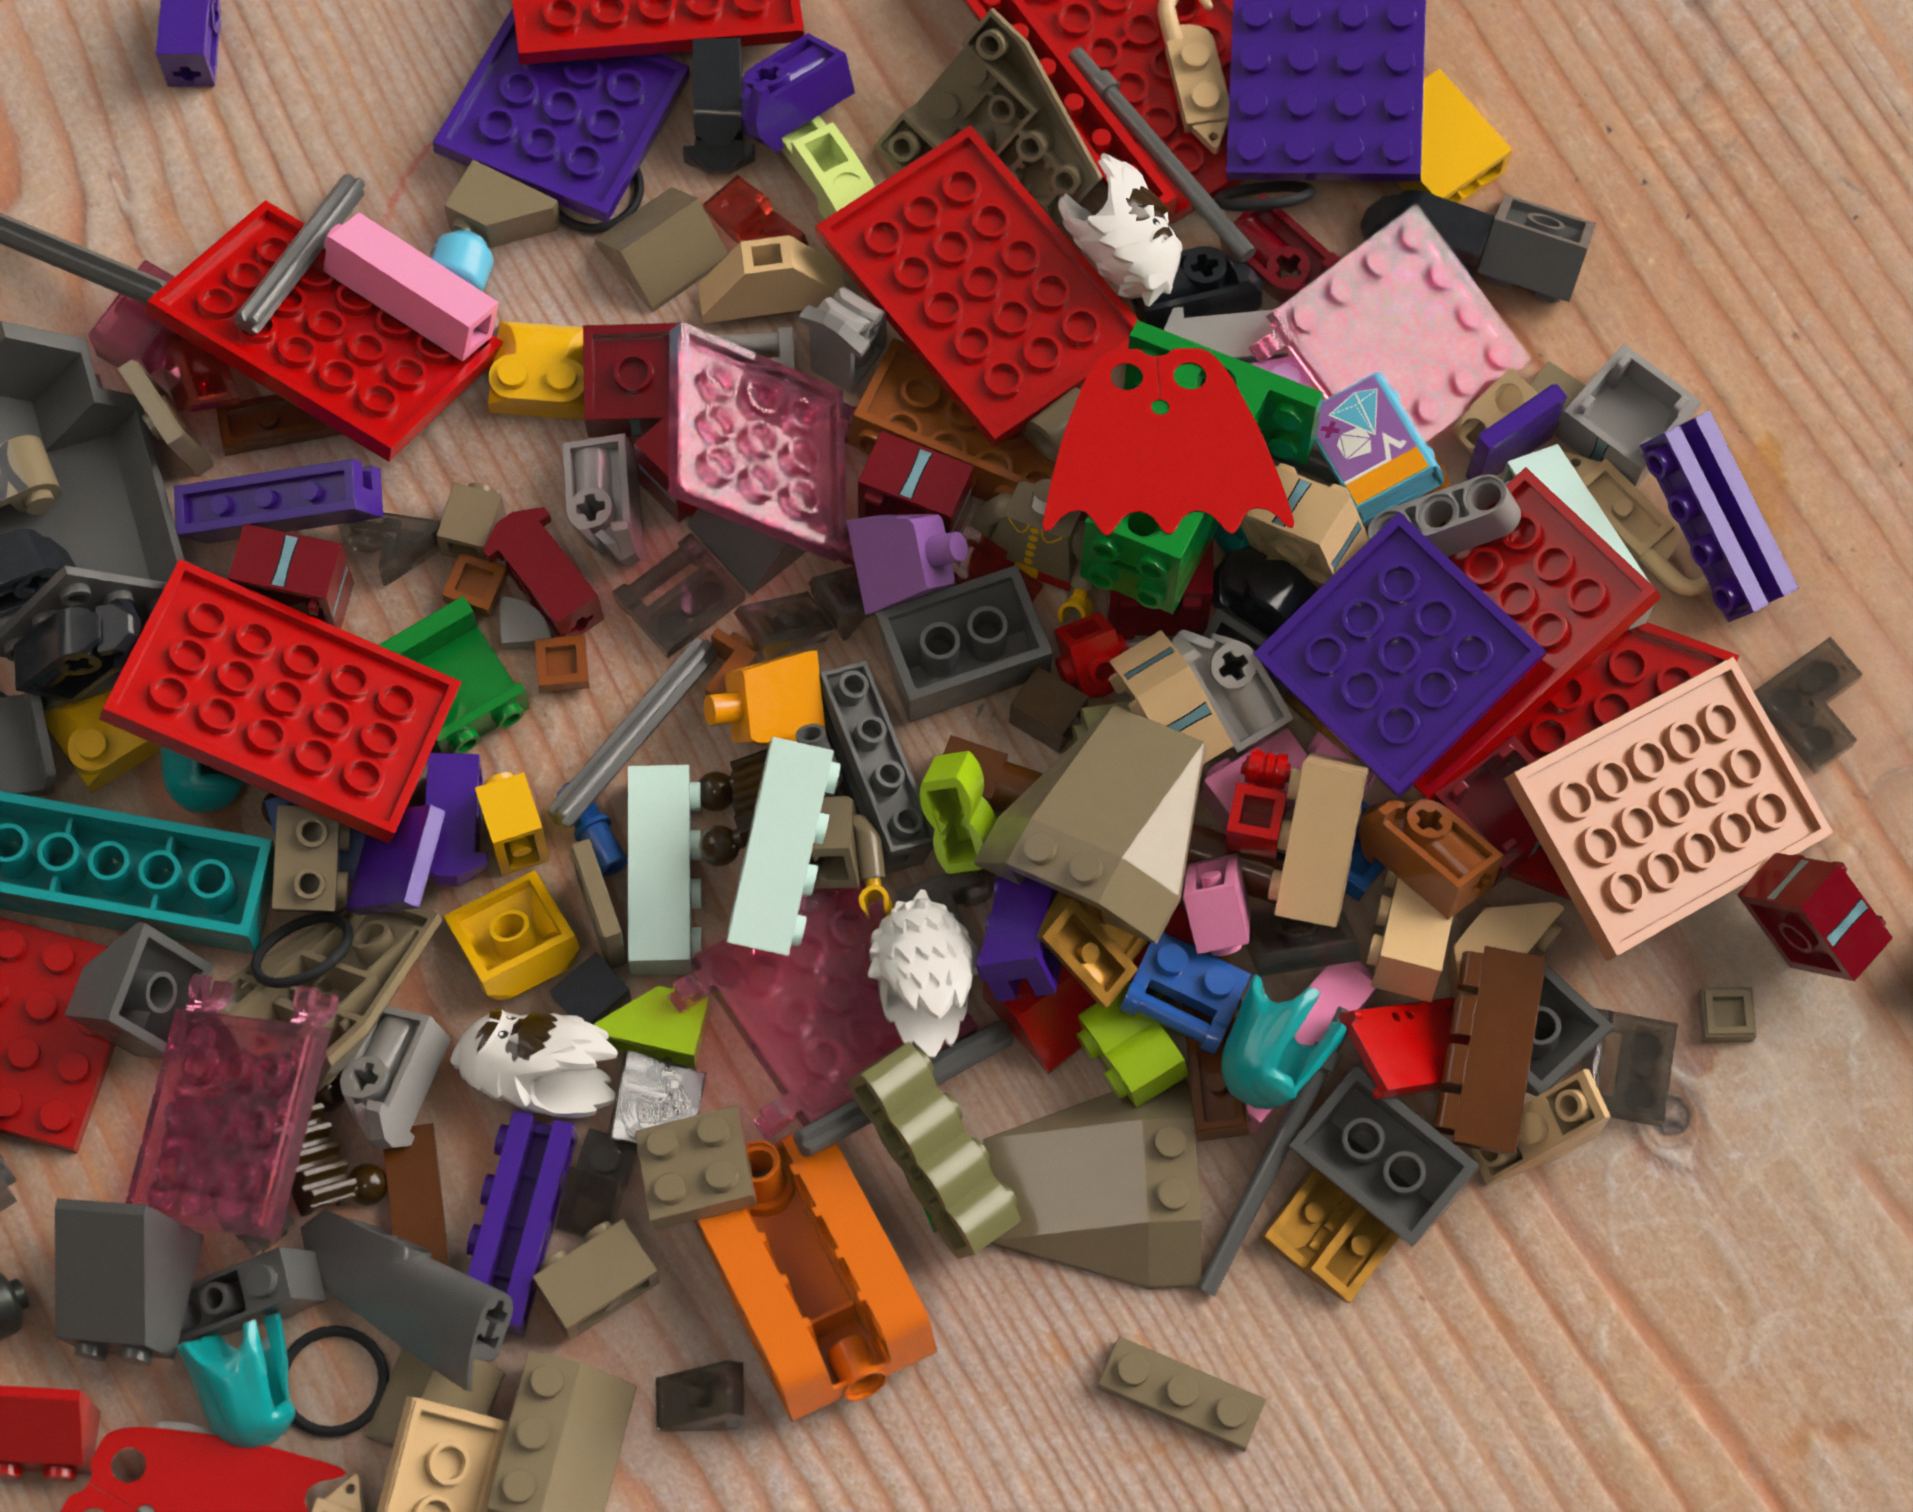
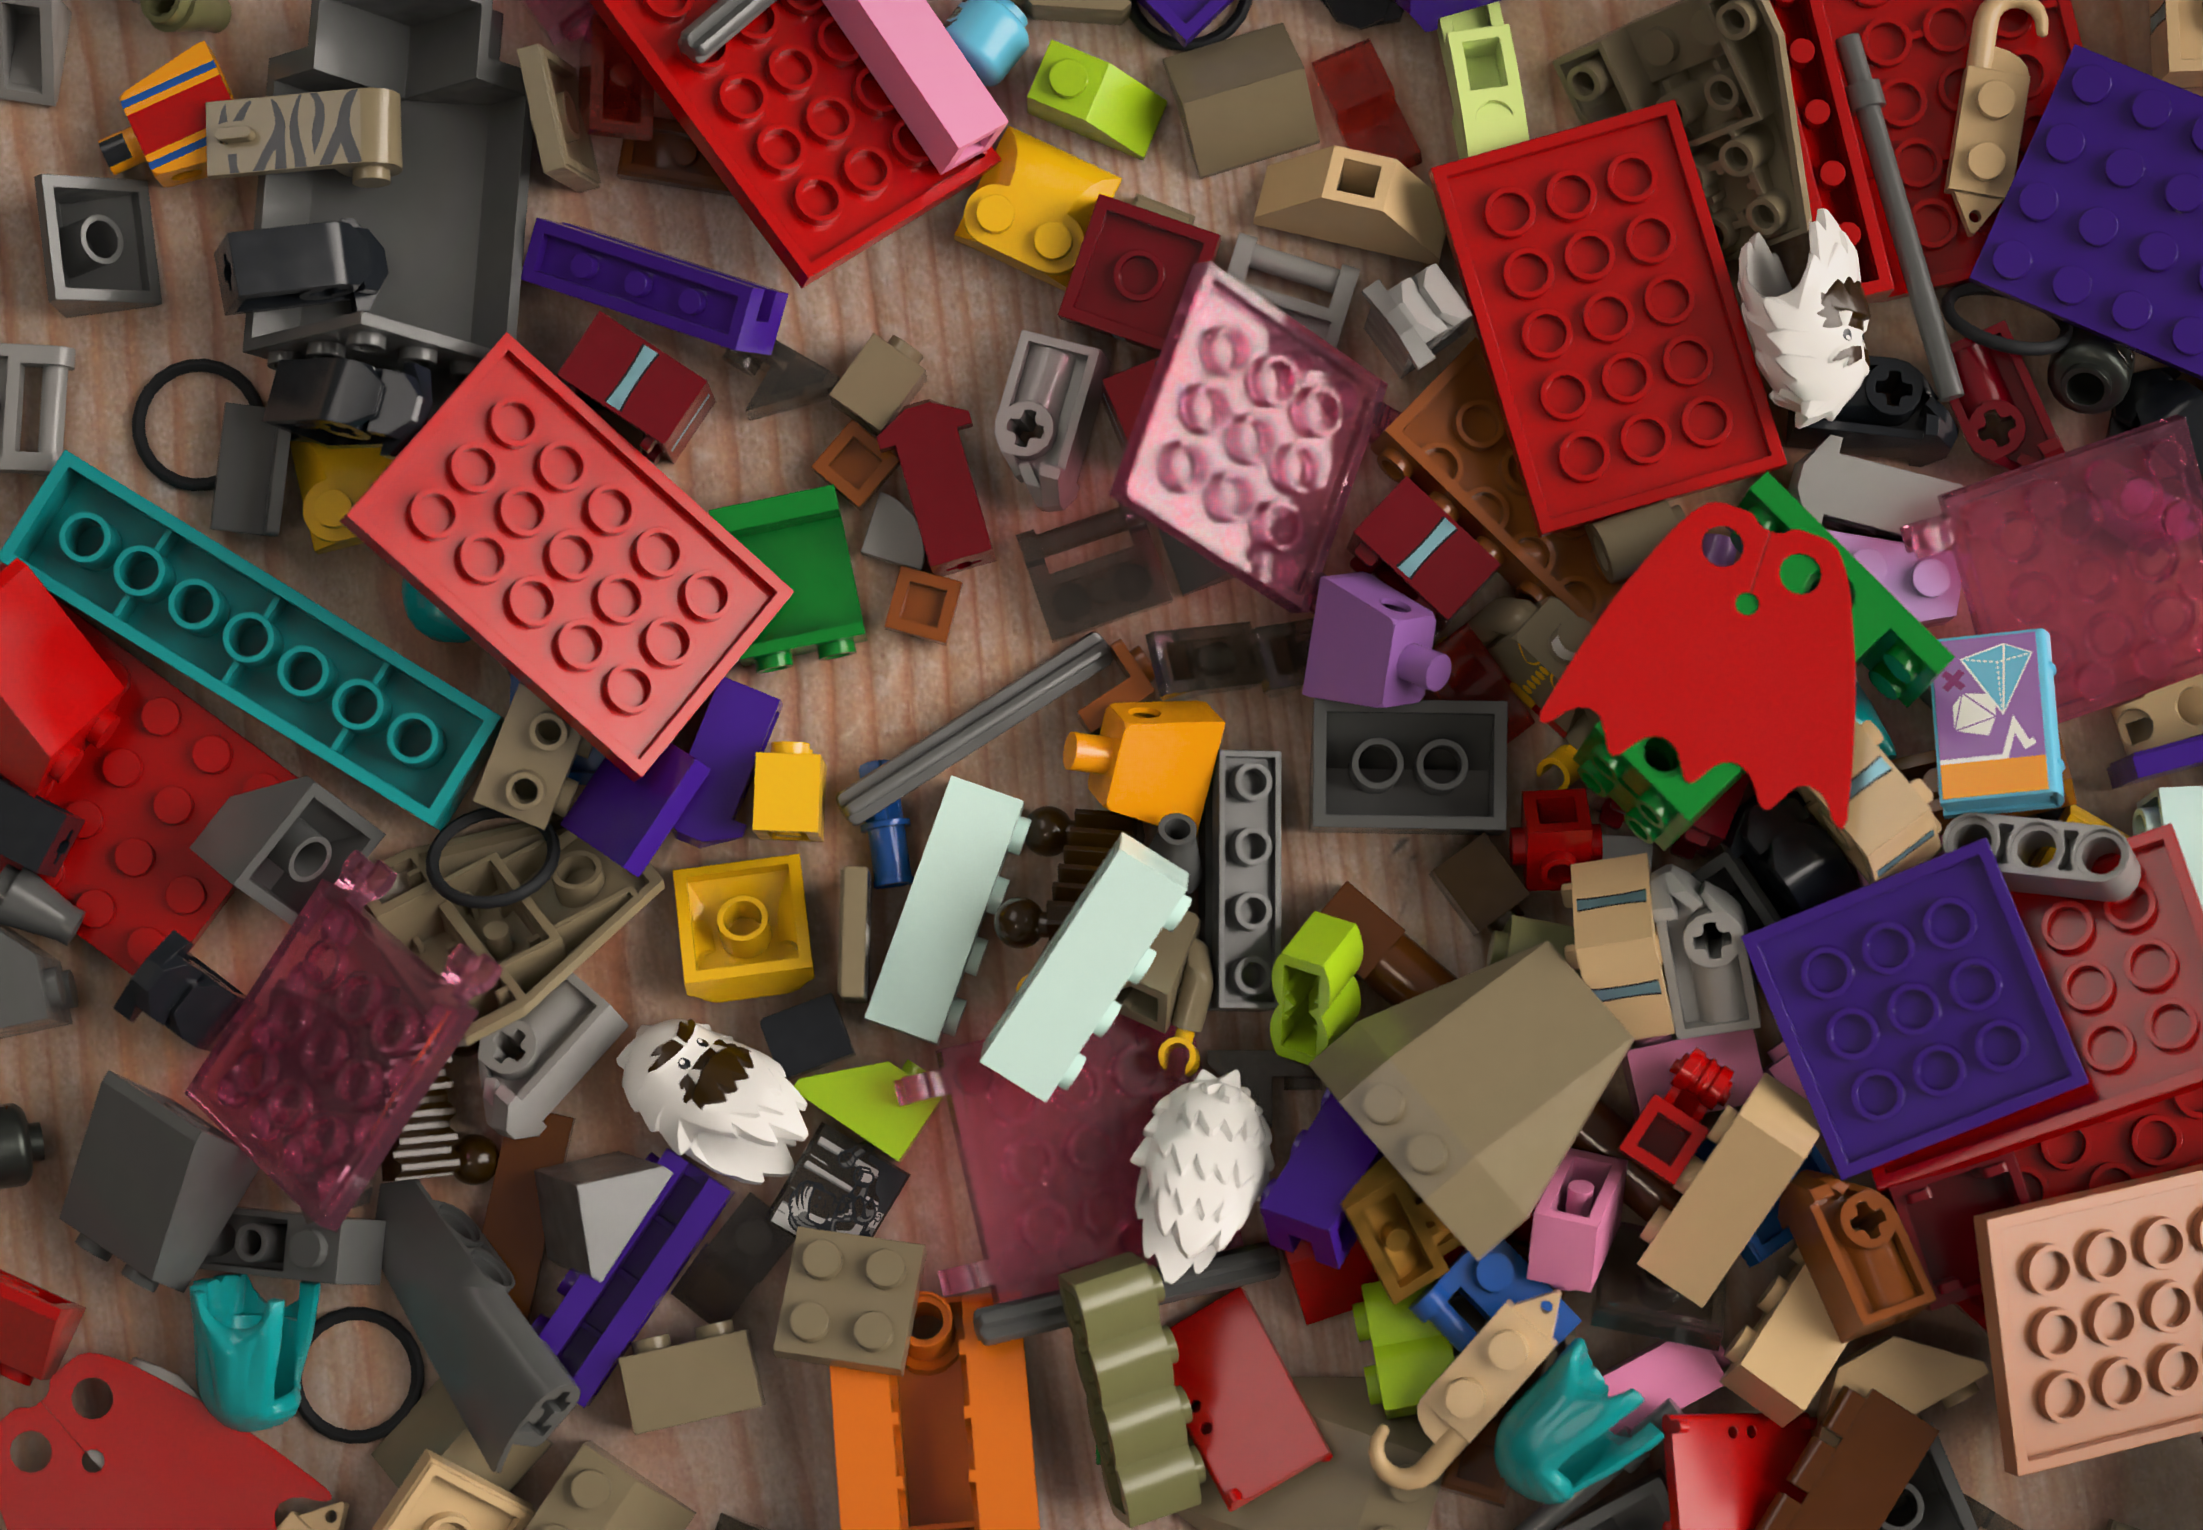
camera: 20 degrees right, 15 degrees up
(95, 1129) = (181, 994): none -> black piece
(472, 1174) = (595, 1208): none -> dark grey slope
(555, 279) = (1095, 100): none -> lime slope
(1031, 1141) = (1250, 1413): none -> red door
(1190, 1045) = (1473, 1388): none -> tan plate
(1337, 210) = (2090, 373): none -> pearl dark grey head

